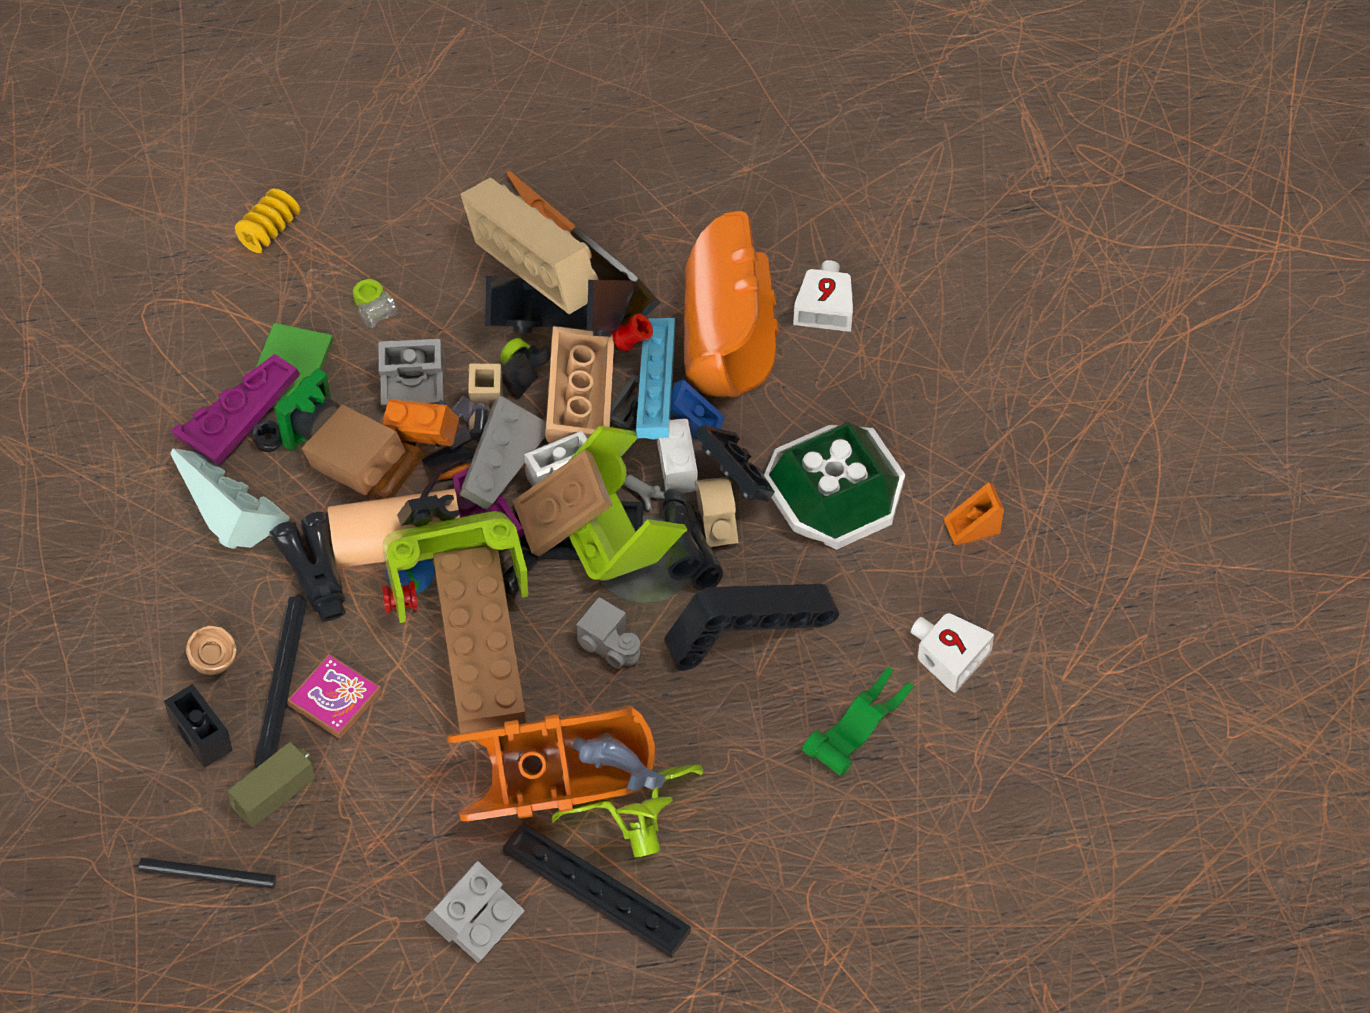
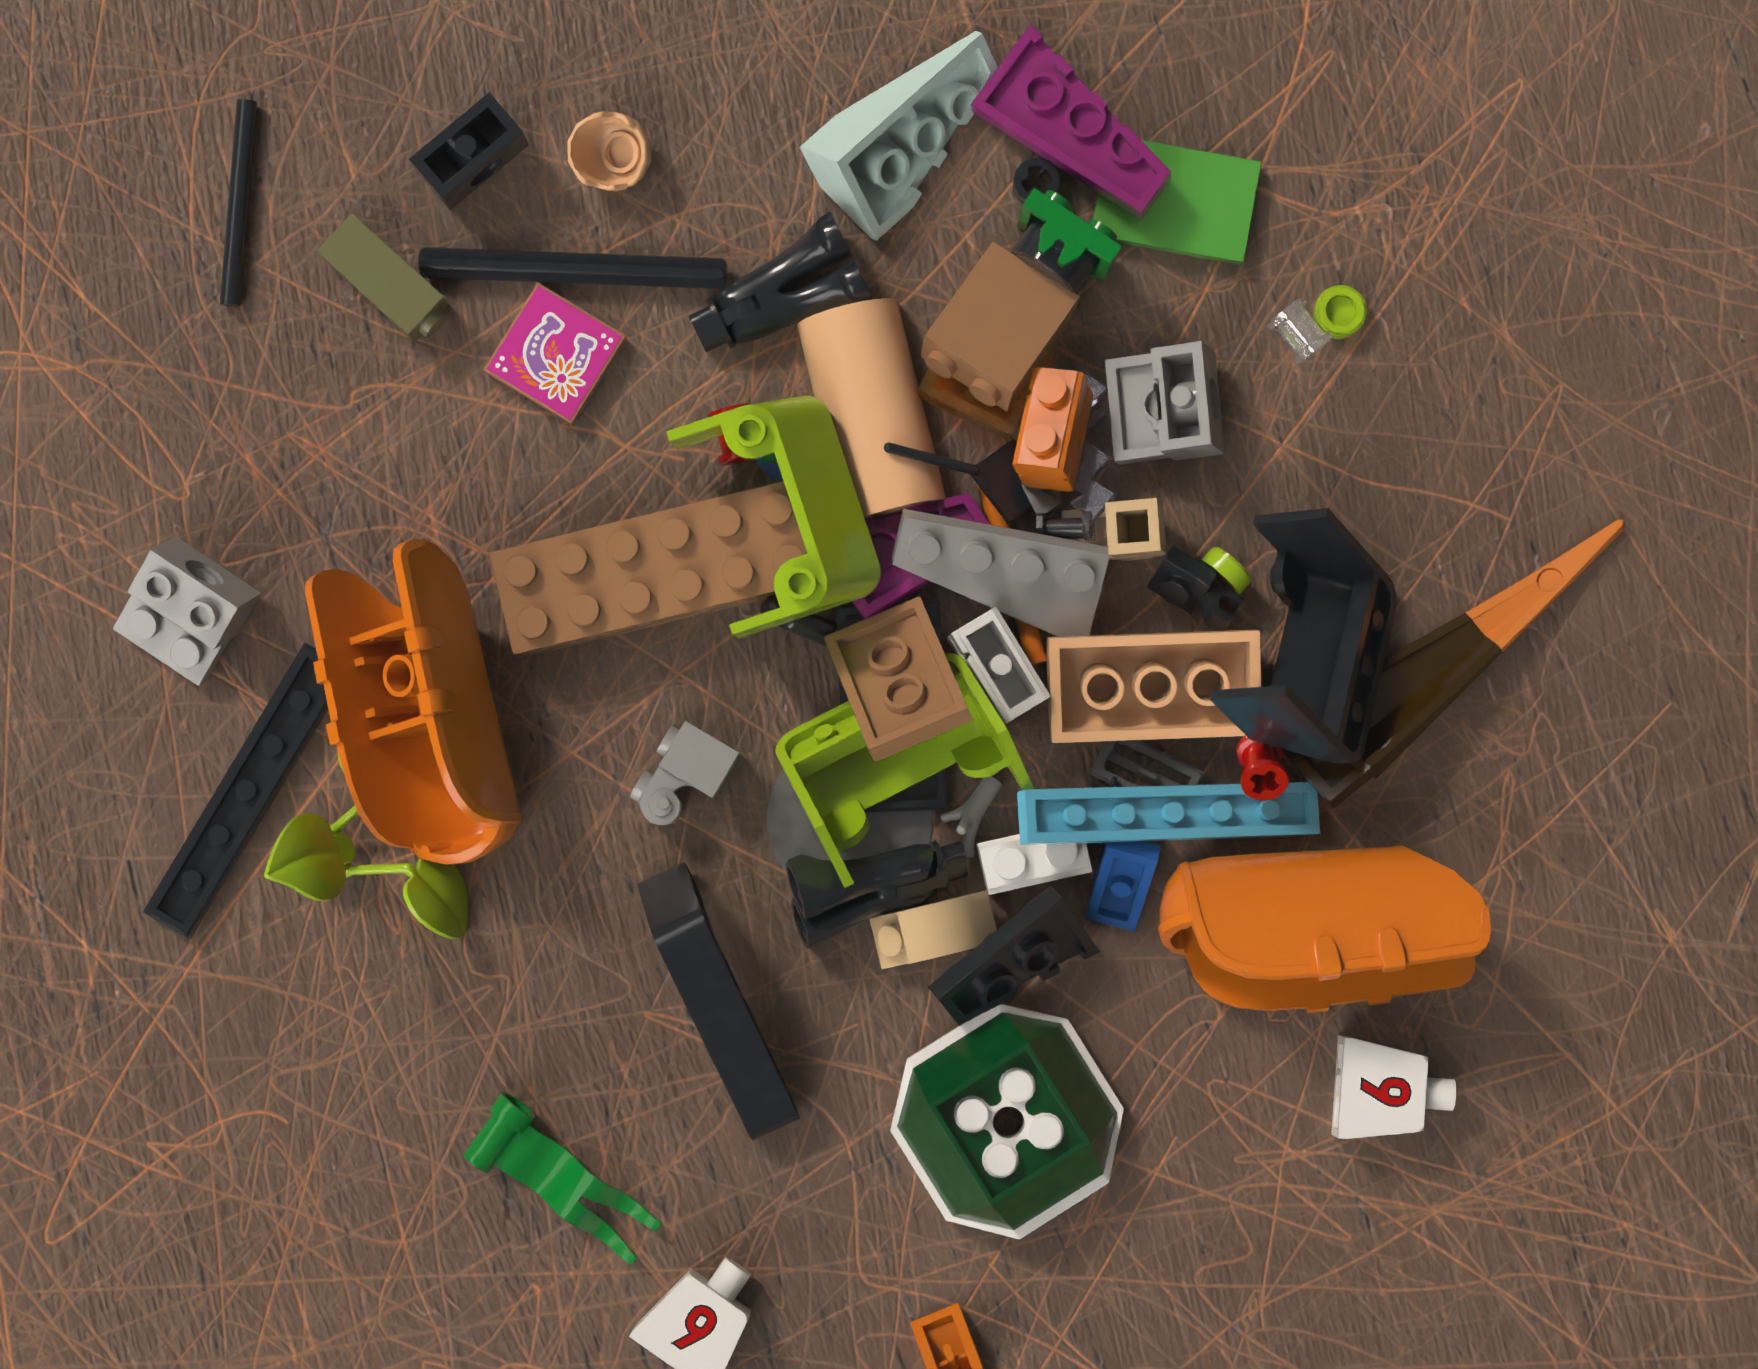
camera: 85 degrees right, 30 degrees up
(265, 219) = (1473, 120): yellow piece -> none
(421, 510) = (857, 452): black plate -> none
(529, 244) = (1411, 578): tan brick -> none
(611, 752) = (437, 824): sand blue animal -> none

